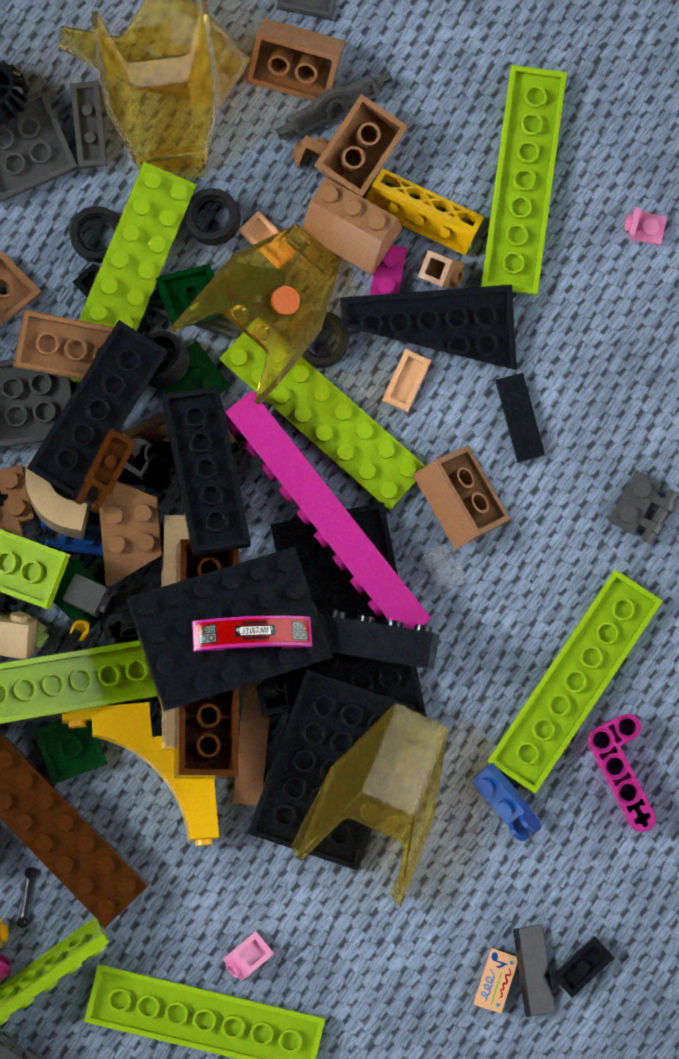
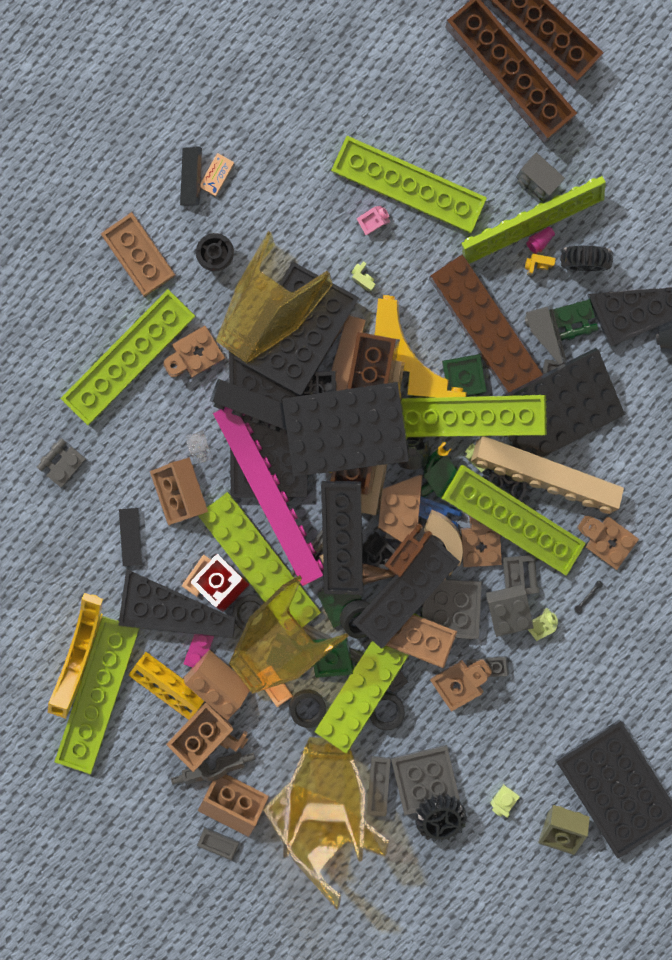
camera: 170 degrees left, 5 degrees up
(29, 873) = (504, 300): black hinge -> none
(87, 595) = (434, 470): dark grey brick -> none
(243, 861) = (363, 280): none -> yellowish green bracket
(251, 632) = (331, 422): slope -> none
(285, 300) = (269, 643): orange piece -> none
(375, 373) = (219, 583): none -> red slope
(441, 270) = (162, 644): medium nougat brick -> none
(475, 861) = (214, 252): none -> black cone
(488, 694) = (187, 360): none -> medium nougat plate
(506, 802) = (187, 287): blue hinge -> none
(562, 228) = (78, 655): none -> yellow arch
(582, 966) = (159, 172): black plate -> none
(591, 838) = (138, 254): none -> medium nougat tile
(626, 775) = (107, 290): dark pink beam -> none
(645, 227) = (23, 648): bright pink bracket -> none

